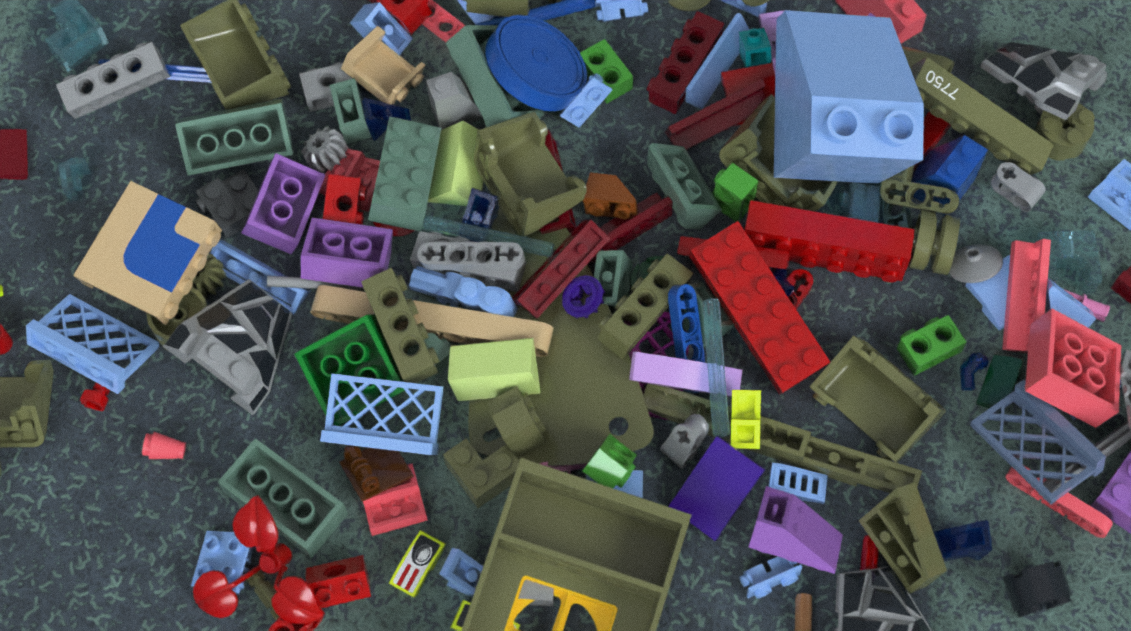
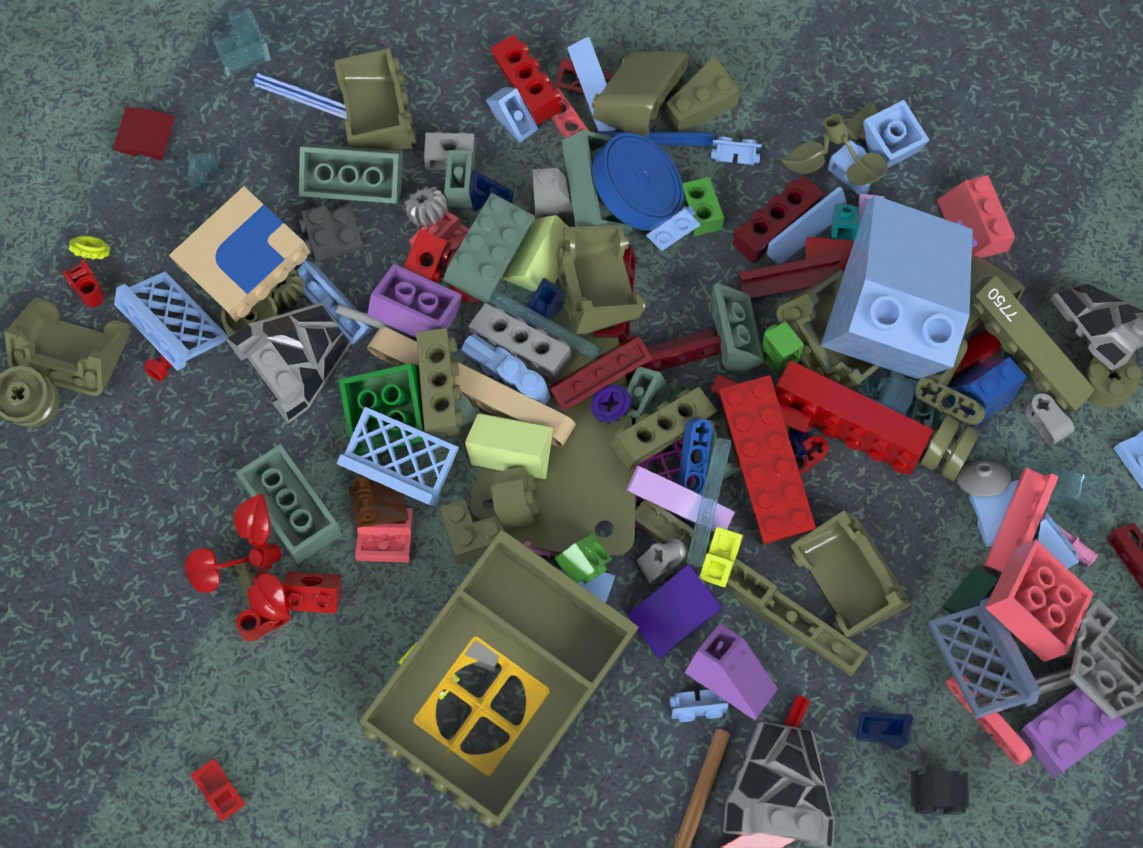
camera: 15 degrees right, 0 degrees up
(127, 82) = (273, 99): light grey brick -> none
(163, 447) = (200, 428): coral cone -> none
(223, 553) = (223, 540): light blue hinge -> none
(283, 204) = (373, 244): medium lavender brick -> none
(381, 69) = (500, 148): tan panel -> none
(417, 563) = (387, 596): slope -> none
(461, 572) = (420, 614): light blue slope -> none
(471, 252) = (524, 333): light grey beam -> none
(609, 197) = (665, 321): dark orange slope -> none
(790, 471) = (746, 616): light blue slope -> none
(905, 537) = (832, 708): olive wedge -> none
(934, 349) = (919, 546): bright green brick -> none
(969, 367) = (952, 569): clear blue arm -> none

